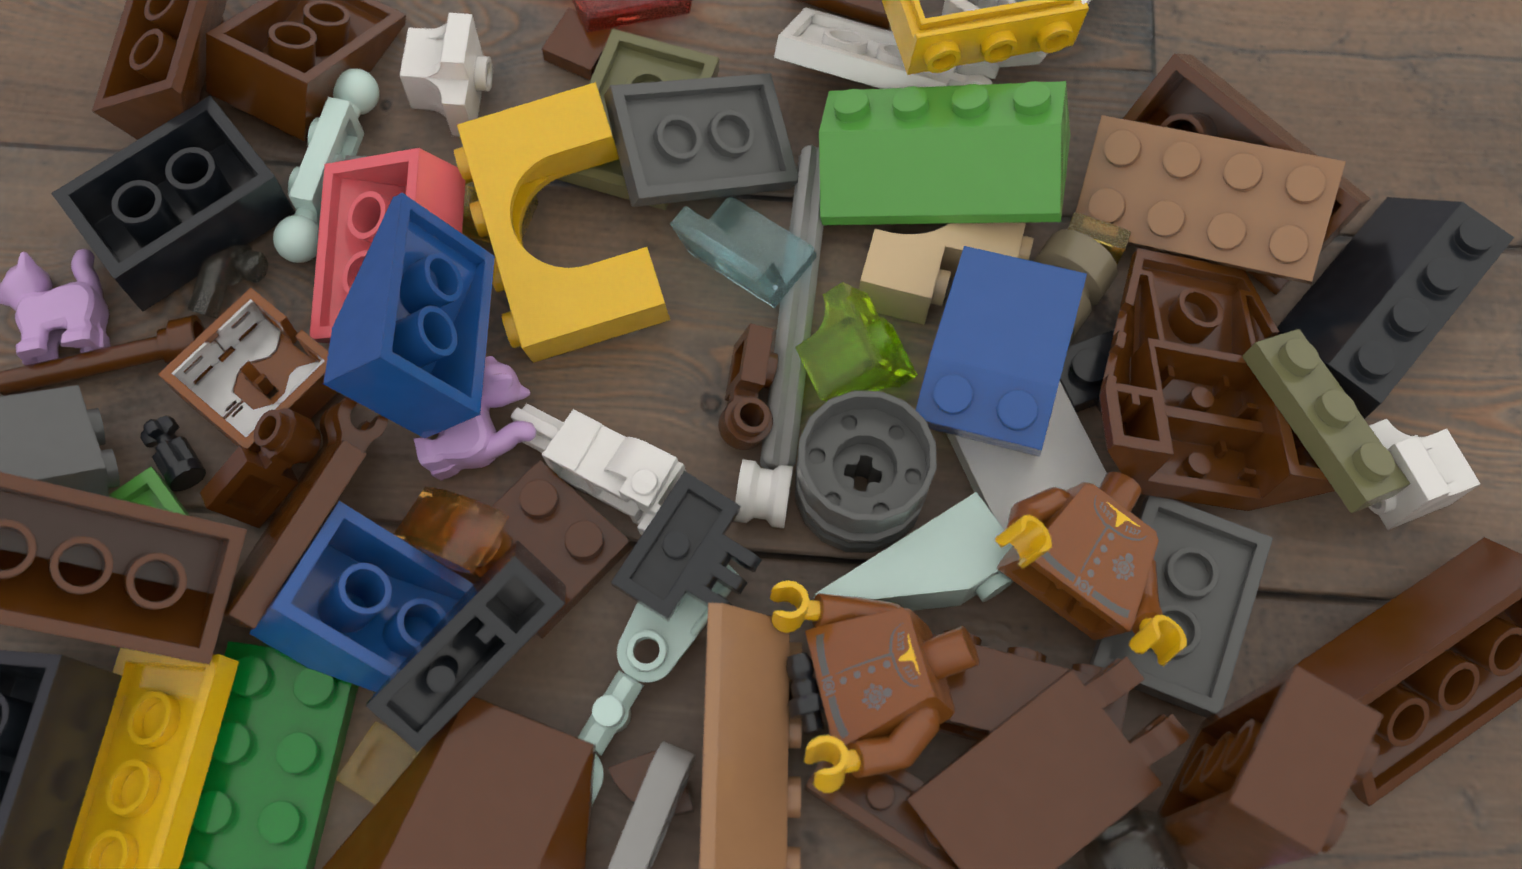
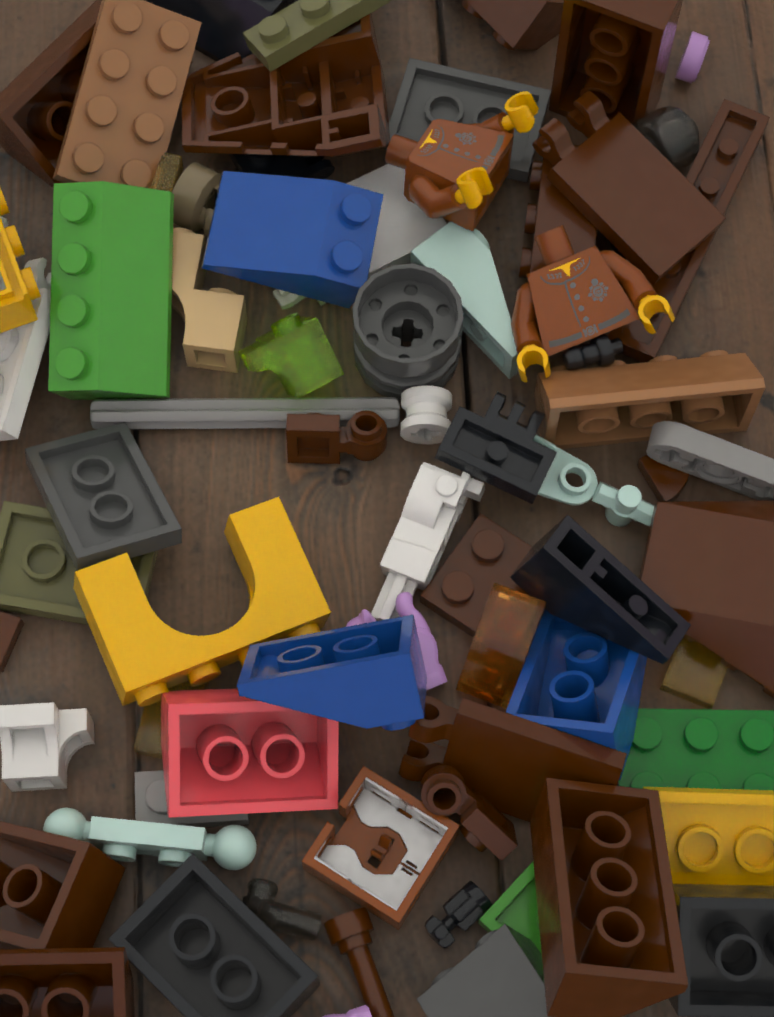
camera: 95 degrees left, 0 degrees up
(746, 248) = (202, 451): clear light blue panel -> none

